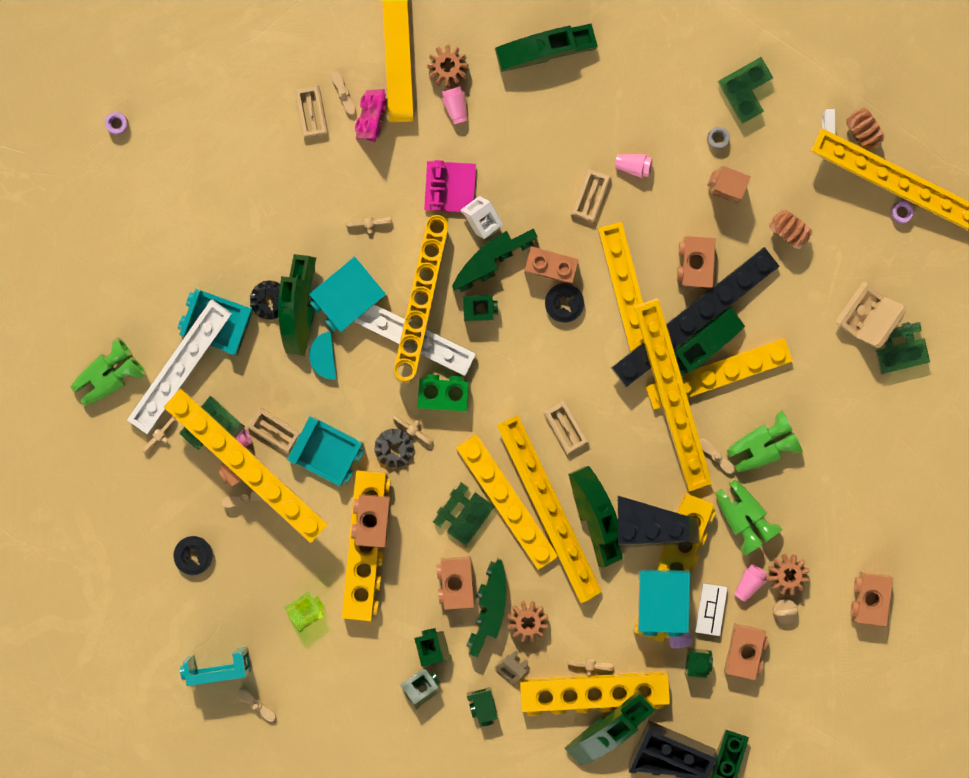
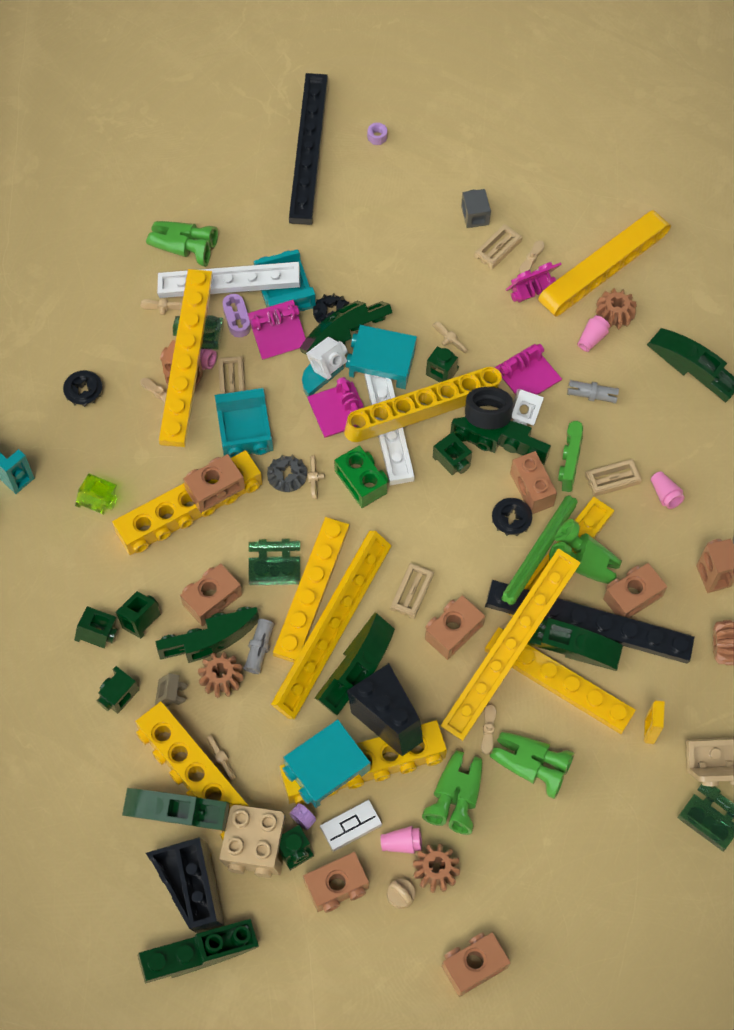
camera: 55 degrees right, 25 degrees down
(87, 195) = (308, 149): none -> black plate
(217, 376) = (231, 316): none -> lavender beam
(257, 361) = (277, 329): none -> dark pink hinge
(260, 102) = (475, 208): none -> dark grey brick
(320, 343) = (327, 357): none -> white brick
(367, 364) = (334, 406): none -> dark pink hinge
(393, 252) = (443, 360): none -> dark green brick
(452, 243) = (488, 397): none -> black tyre
(506, 149) = (592, 391): none -> light grey pin
(525, 576) = (258, 646): none -> light grey pin
(548, 214) = (571, 455): none -> bright green hinge
(613, 309) = (539, 550): none -> bright green axle
(630, 432) = (447, 640): none -> nougat brick
(649, 273) = (591, 554): none -> bright green piece
(675, 690) = (252, 841): none -> tan bracket
(808, 338) = (654, 722): none -> yellow tile

